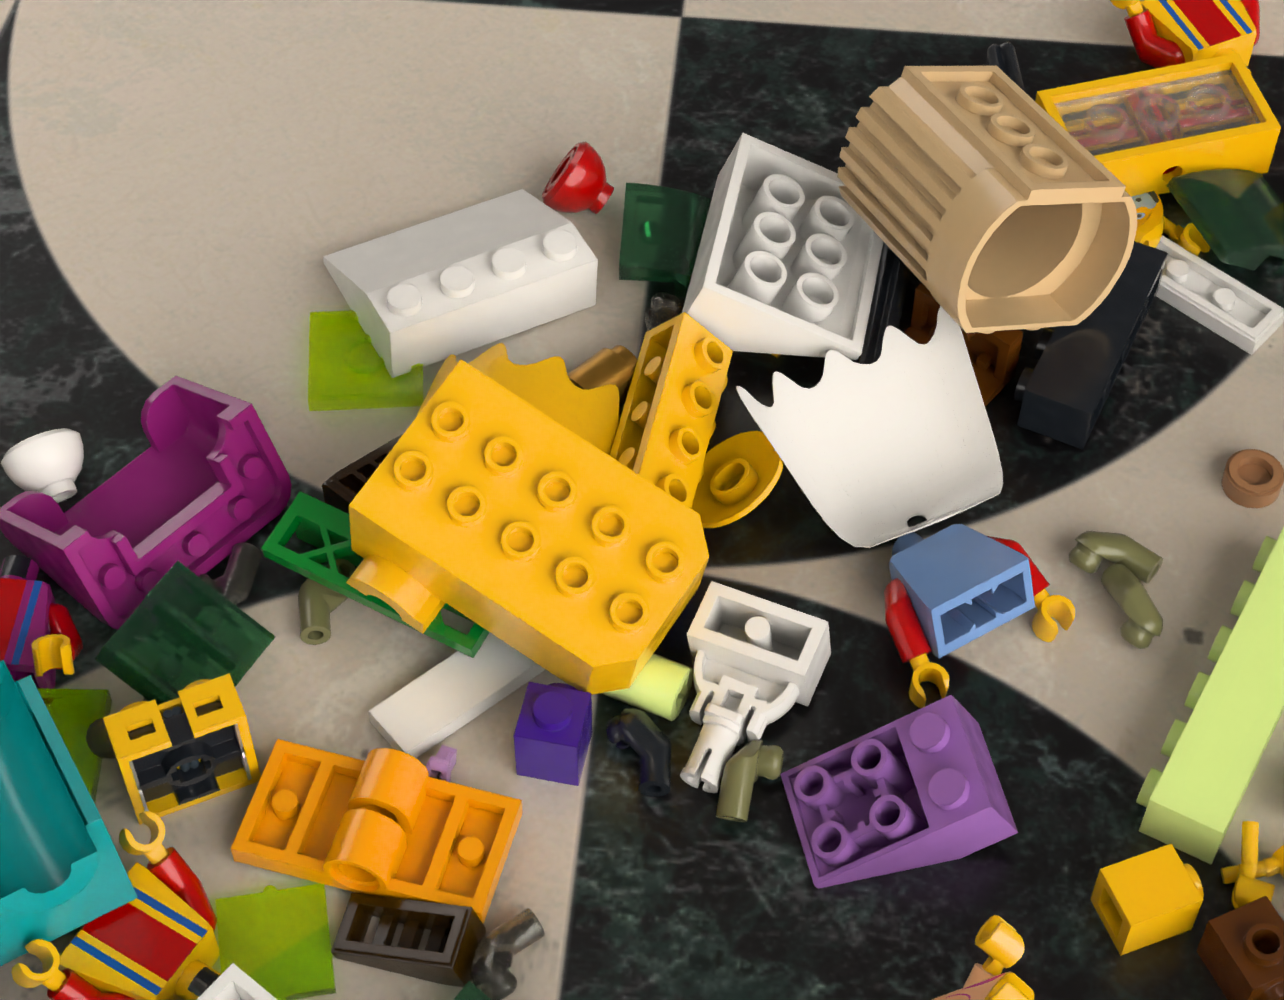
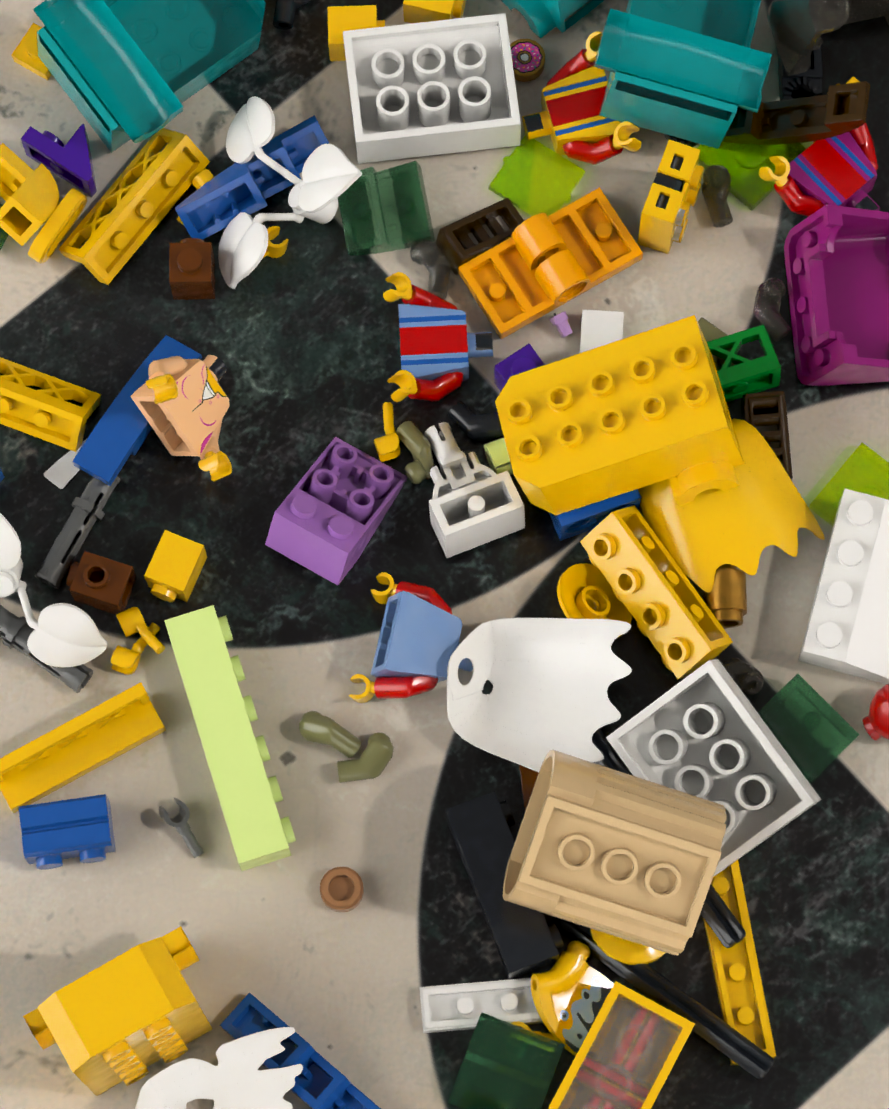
camera: 135 degrees right, 20 degrees up
(183, 636) = (738, 251): clear green slope -> none
(612, 855) = (432, 343): none -> torso
(767, 815) = (388, 445): none -> yellow hand

